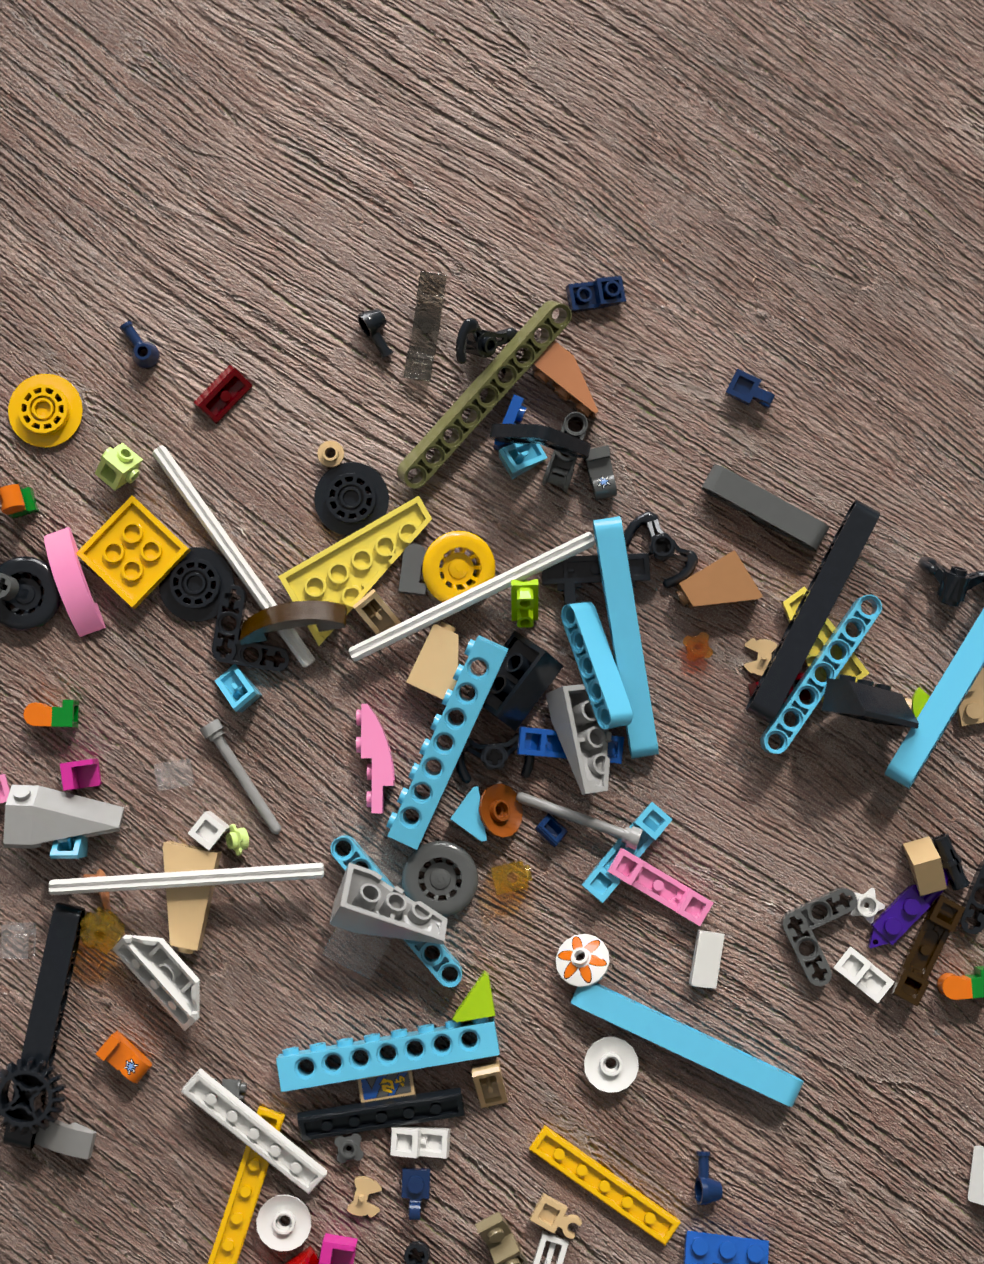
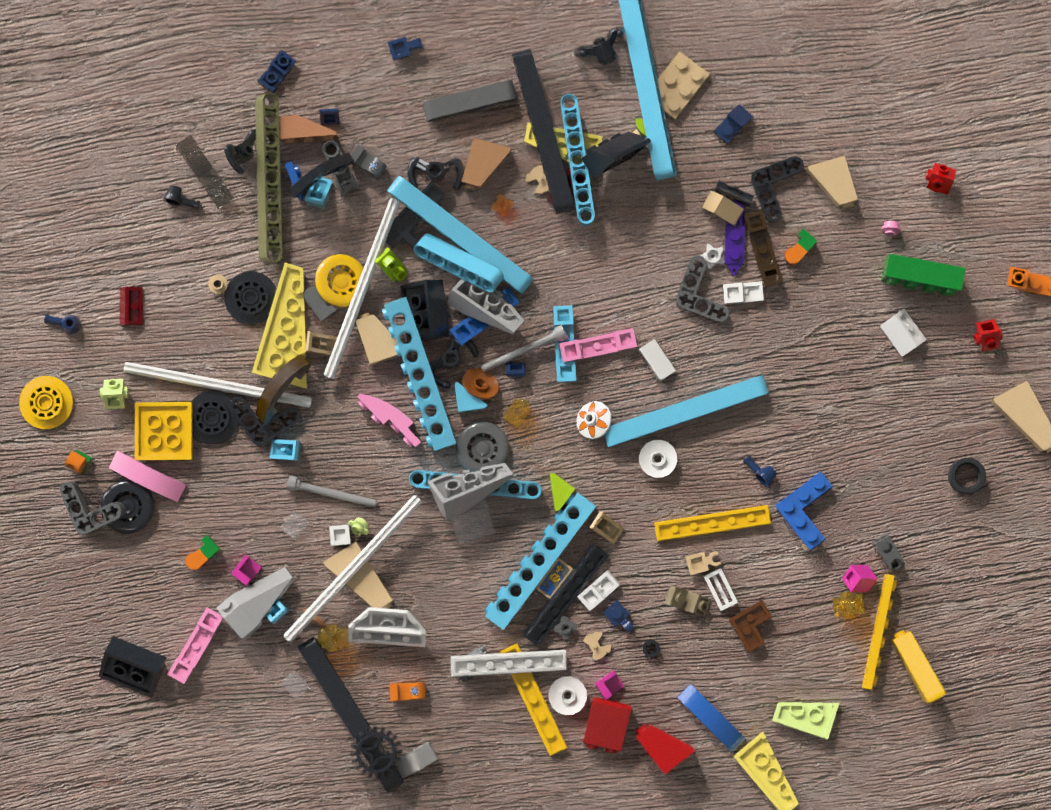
camera: 45 degrees left, 0 degrees up
(605, 389) = (329, 117): none -> dark blue slope

